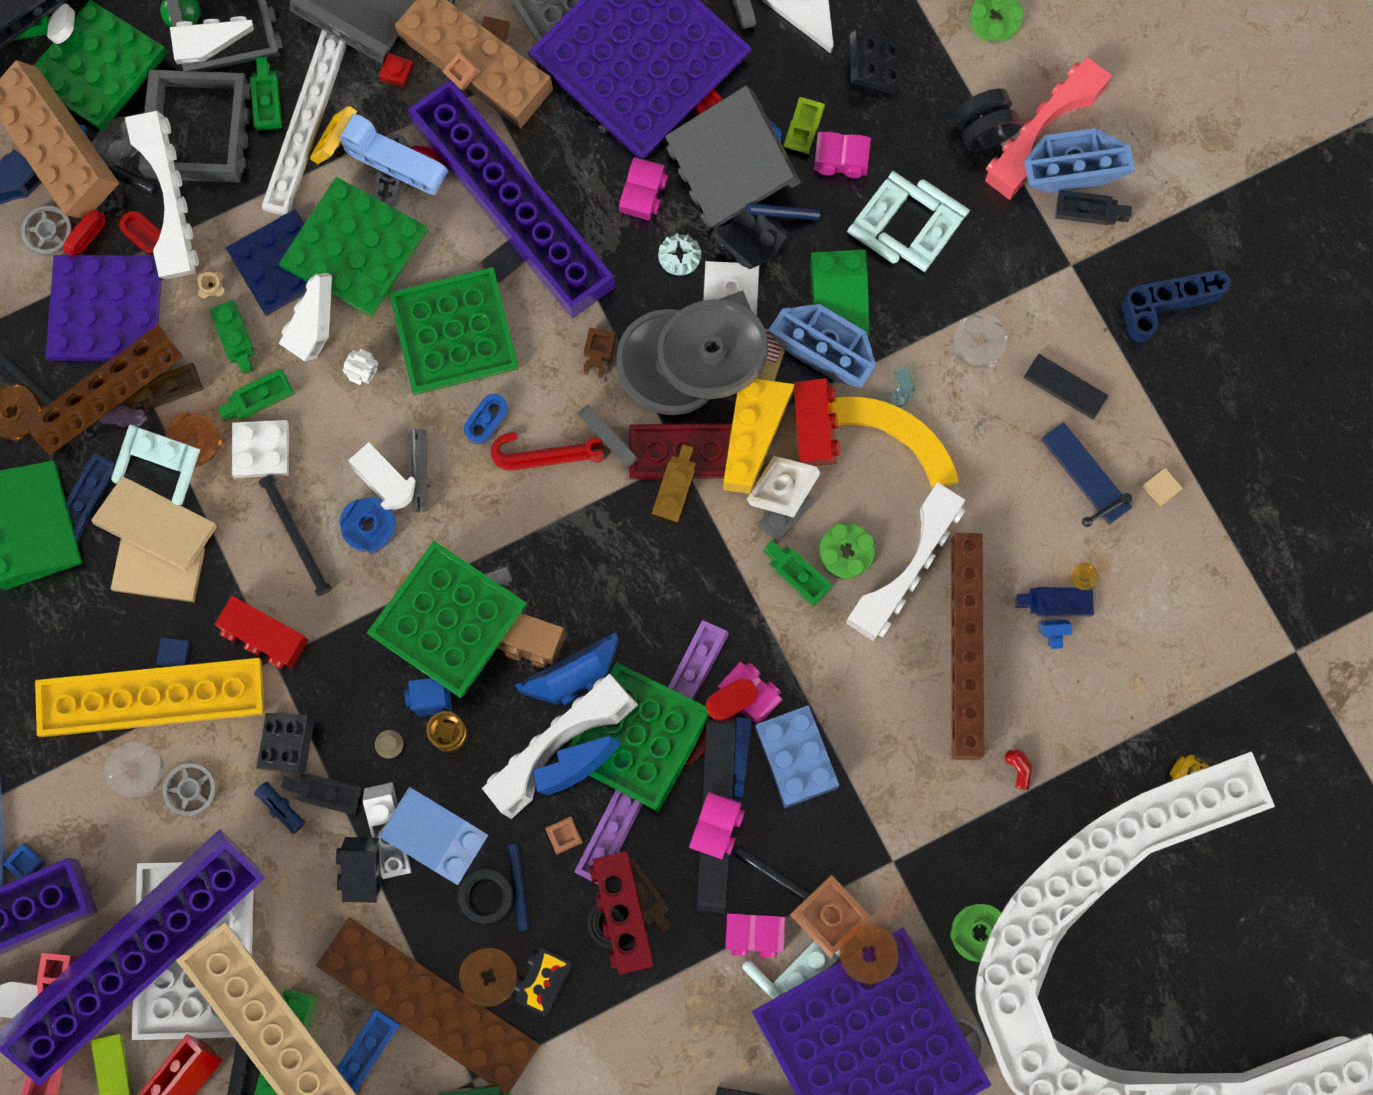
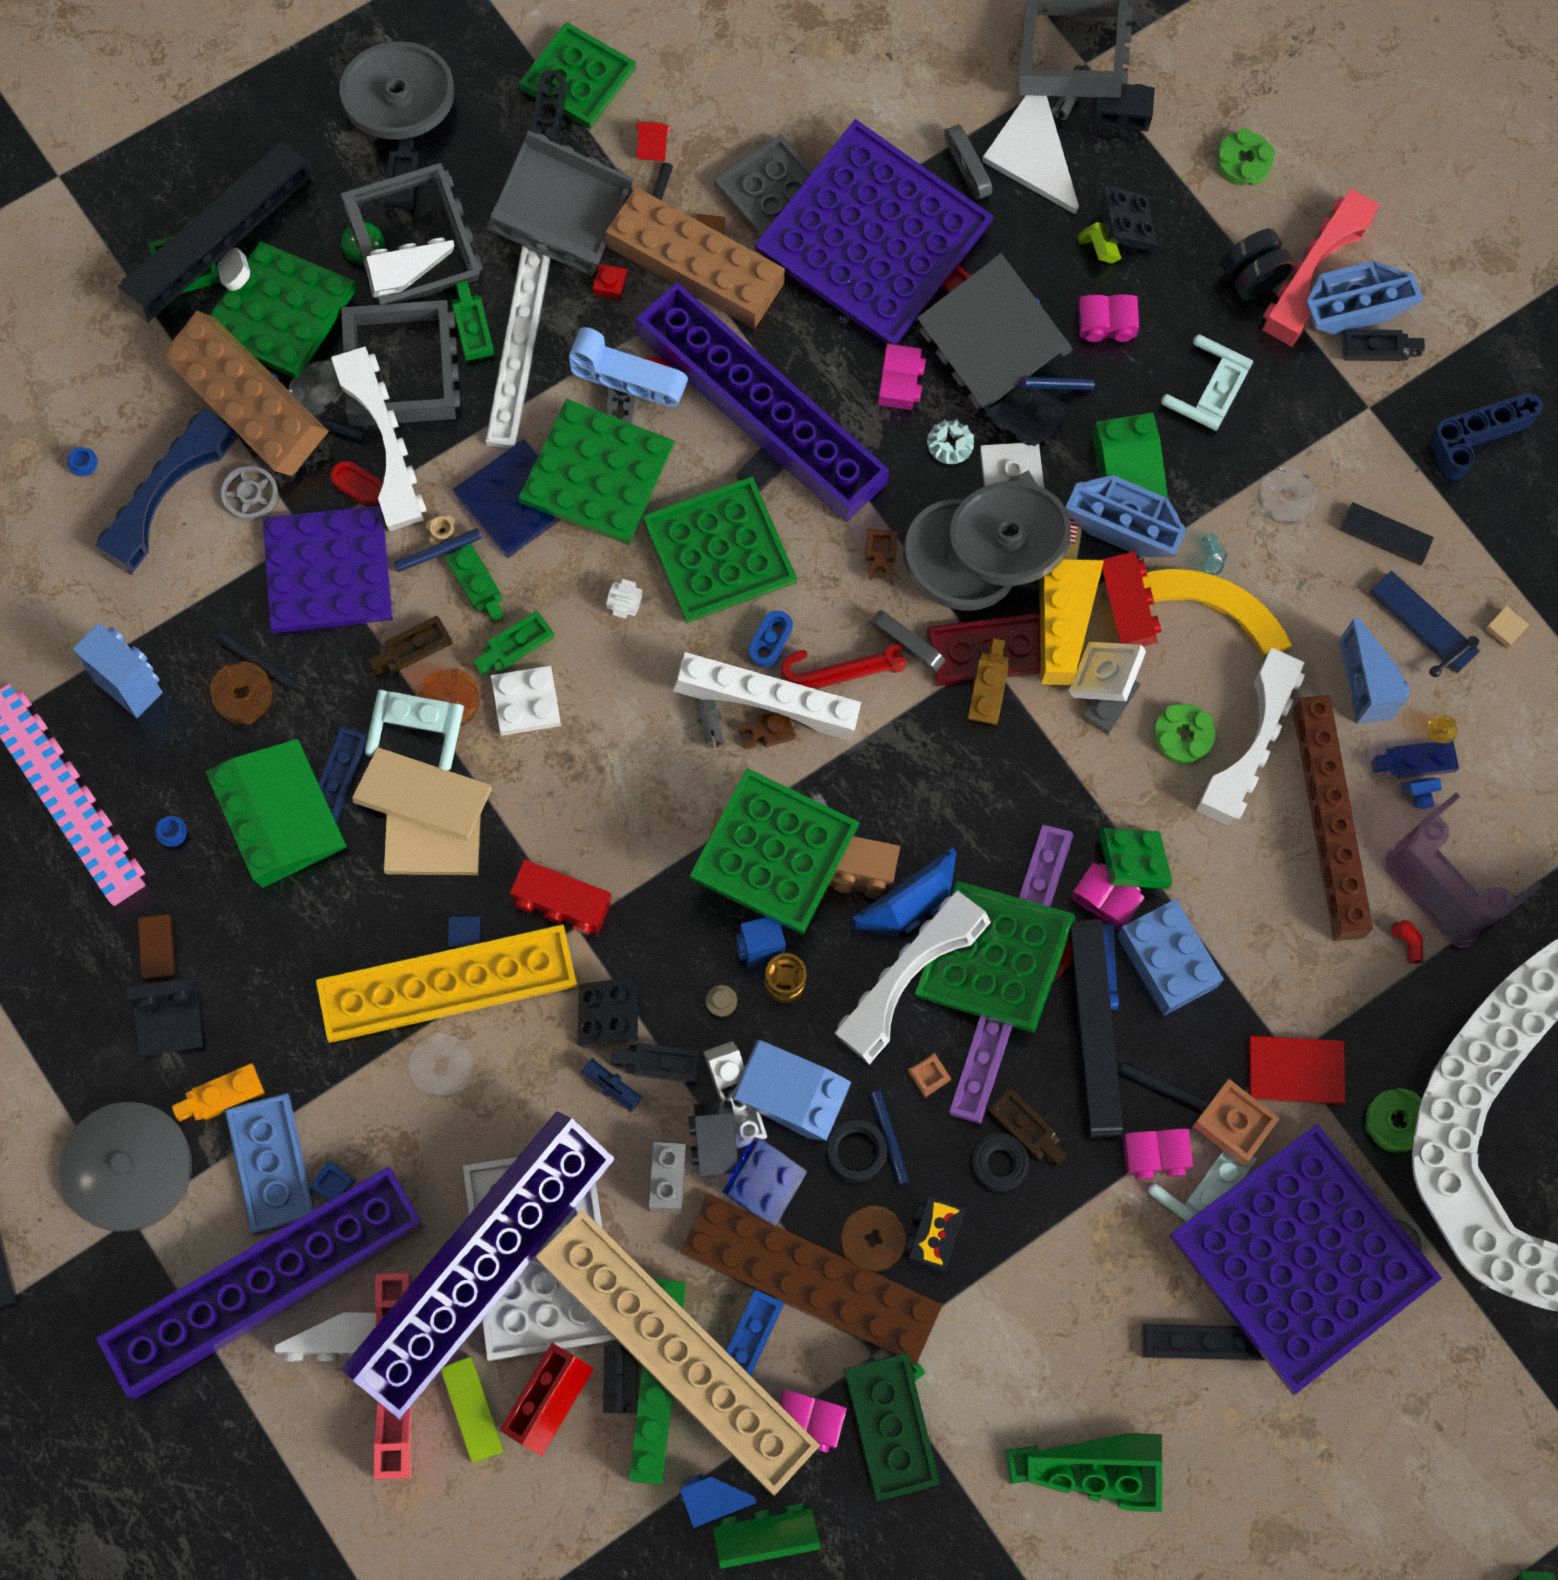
camera: 15 degrees left, 5 degrees down
(84, 233) = (293, 490): red tile -> none
(103, 389) = (345, 654): reddish brown brick -> none
(123, 417) = (369, 681): clear purple axle -> none
(189, 789) = (506, 1079): light grey wheel -> none
(203, 302) = (438, 550): none -> dark blue bar
(268, 483) = (540, 736): black bar -> none
(310, 324) = (563, 559): white slope -> none
(314, 898) = (667, 1177): none -> light grey brick
(331, 136) = (555, 355): yellow plate -> none
(369, 540) = (665, 783): blue plate -> none
(382, 478) = (669, 714): white piece -> none
(399, 913) = (764, 1181): none -> clear blue plate
(461, 70) = (688, 271): nougat tile -> none
(475, 501) = (771, 728): none -> reddish brown plate
(489, 478) = (724, 682): none -> white arch
(574, 764) = (934, 993): blue slope -> none
(640, 955) = (1039, 1188): dark red brick -> none
(716, 825) = (1101, 1037): dark pink brick -> none
(731, 699) = (1094, 901): red tile -> none
(780, 662) = (1135, 858): none -> green plate
(797, 573) = (1136, 762): green hinge -> none
(804, 125) = (1061, 291): lime slope -> none
(848, 90) = (1105, 250): none -> lime tile
(882, 209) = (1161, 368): light aqua plate -> none
(885, 954) = (1305, 1152): clear orange plate -> none
(895, 874) = (1296, 1070): none -> red tile
(1025, 520) = (1372, 675): none -> medium blue slope
(1054, 725) = (1441, 889): none -> clear purple windscreen

